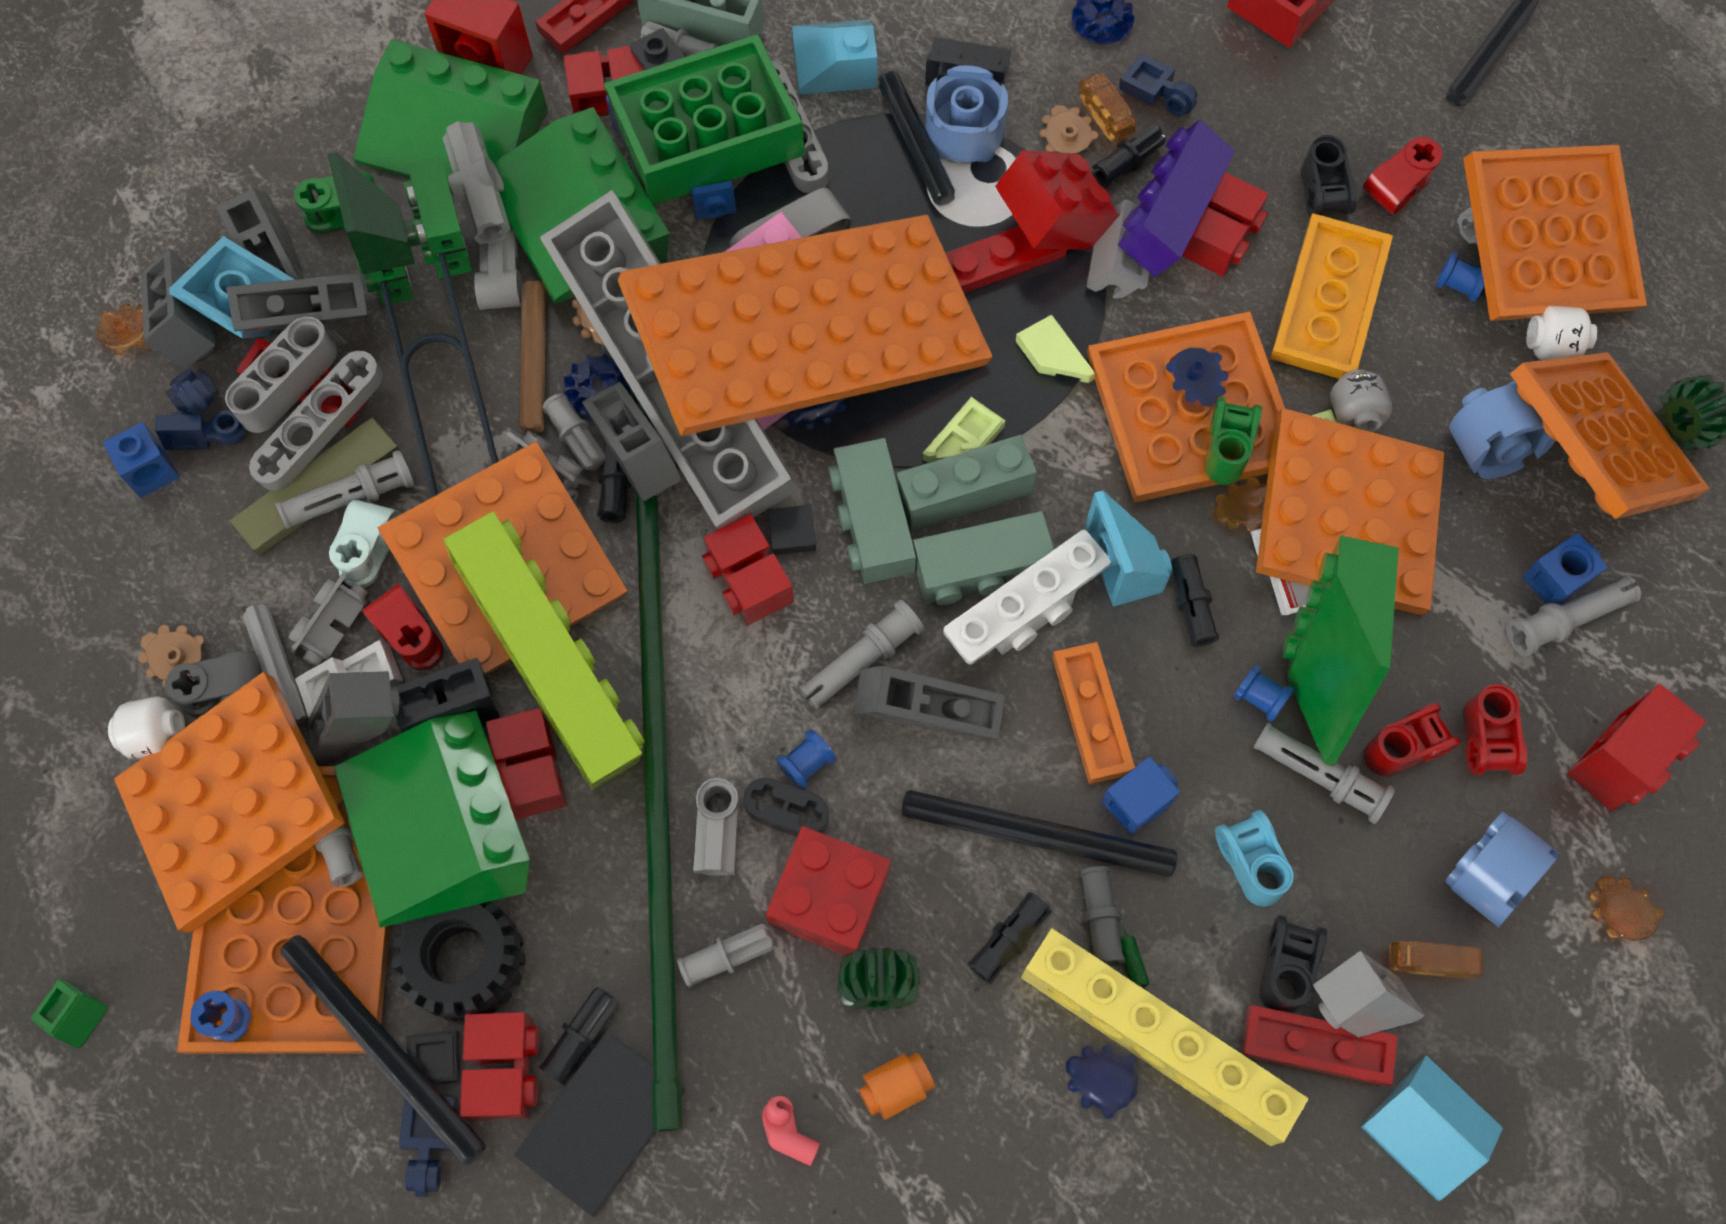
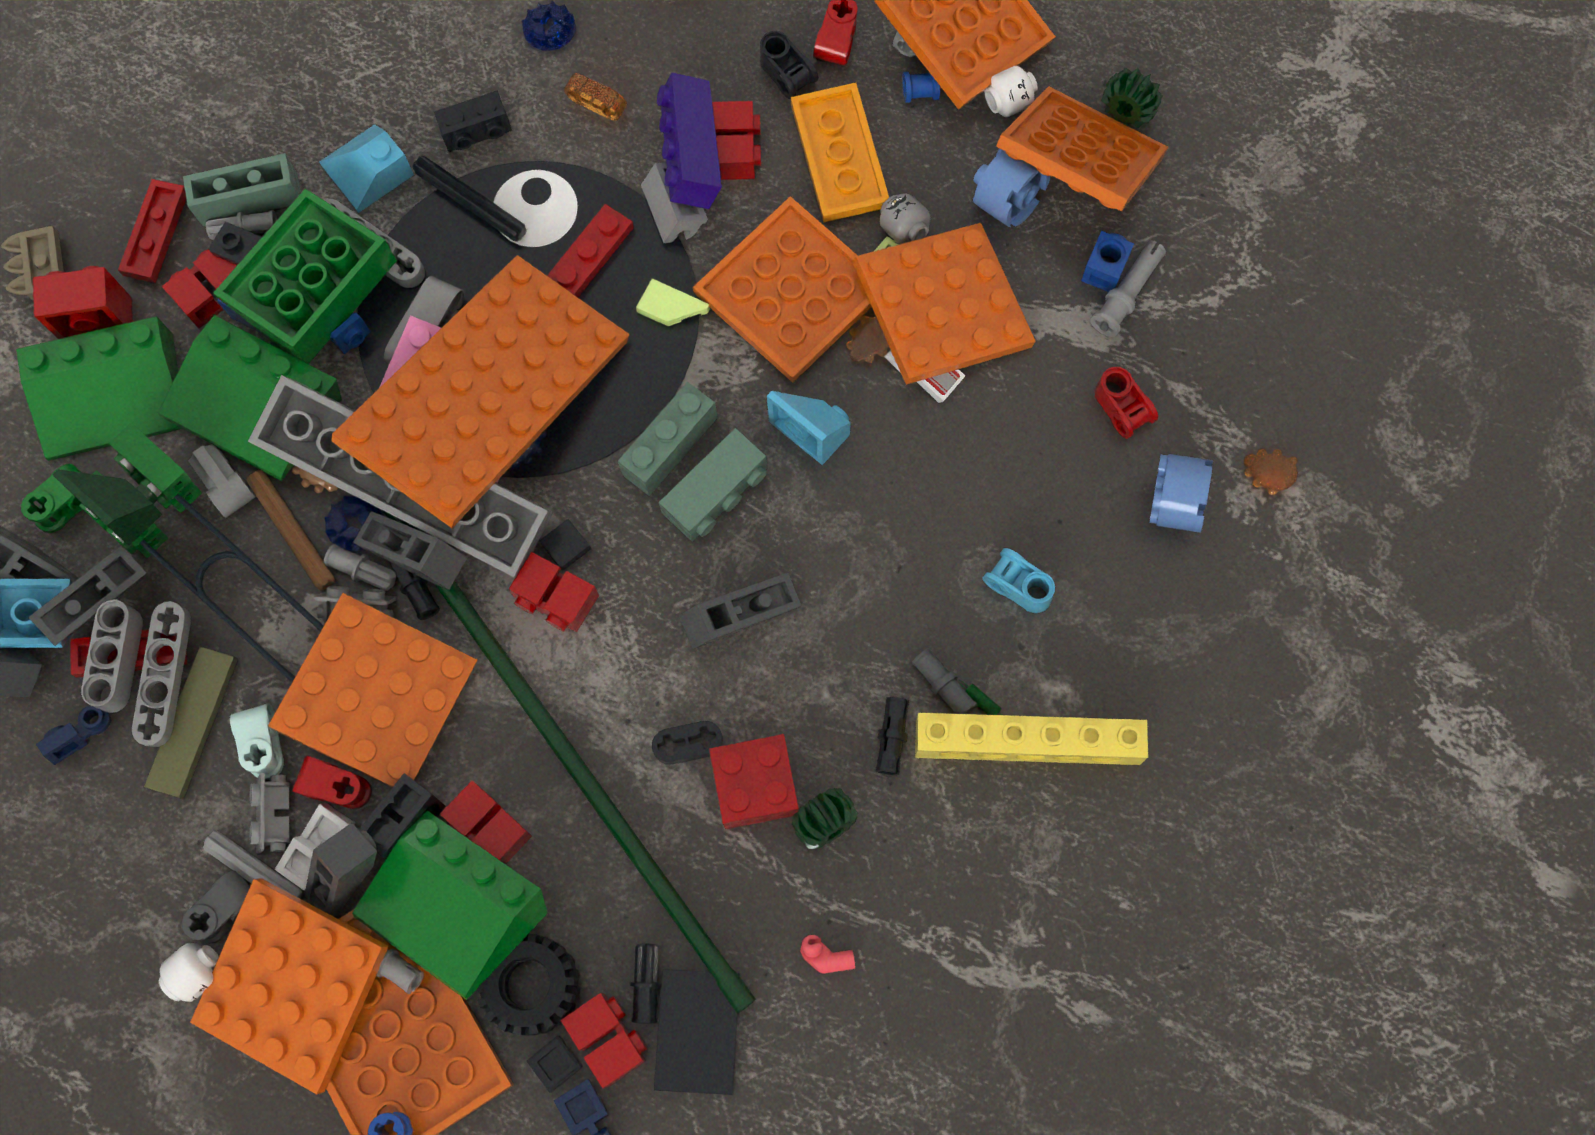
camera: 30 degrees left, 5 degrees up
(141, 459) = (44, 783): blue brick -> none
(169, 650) = (166, 908): medium nougat piece -> none
(191, 391) = (47, 709): dark blue plate -> none
(371, 481) = (230, 697): light grey pin -> none
(383, 1050) = (517, 1079): black axle -> none
(476, 183) = (163, 424): light grey piece -> none
(542, 650) = (450, 739): lime brick -> none
(716, 831) = (650, 789): light grey piece -> none
(725, 954) = (710, 867): light grey axle -> none
(806, 759) = (680, 701): blue bush -> none
(872, 511) = (615, 497): sand green brick -> none
(878, 642) = (677, 588): light grey pin -> none
(896, 1085) = (879, 880): orange brick -> none
(966, 114) = (497, 161): medium blue brick -> none
(968, 430) = (645, 401): yellowish green tile -> none
(1028, 601) = (764, 497): white bracket -> none
(1039, 833) = (867, 653): black axle -> none
(1056, 200) = (605, 191): red brick -> none
(1067, 130) = (577, 130): medium nougat piece -> none
(1093, 712) = (855, 548): orange plate -> none
(1103, 1079) = (1009, 789): clear blue piece -> none
(1128, 155) = (633, 125): black axle -> none
(1141, 795) = (921, 586): blue brick -> none
(1151, 79) = (614, 59): dark blue plate -> none
(1194, 600) = (875, 428): black pin -> none
(1199, 375) = (783, 265): clear blue piece -> none
(1232, 433) = (833, 294): green piece -> none
(1263, 693) = (959, 465): blue bush -> none
(1295, 956) = (1081, 632): black piece -> none
(1318, 1046) = (1132, 680): red plate -> none
(1343, 640) = (995, 402): green slope -> none
(1349, 778) = (1053, 495): light grey pin -> none
(1365, 997) = (1144, 631): light grey slope -> none
(1416, 738) = (1078, 437): red piece -> none
(1434, 1129) = (1234, 689): medium azure slope -> none
(1436, 959) = (1173, 578): clear orange beam -> none
(1638, 749) = (1221, 358): red brick -> none

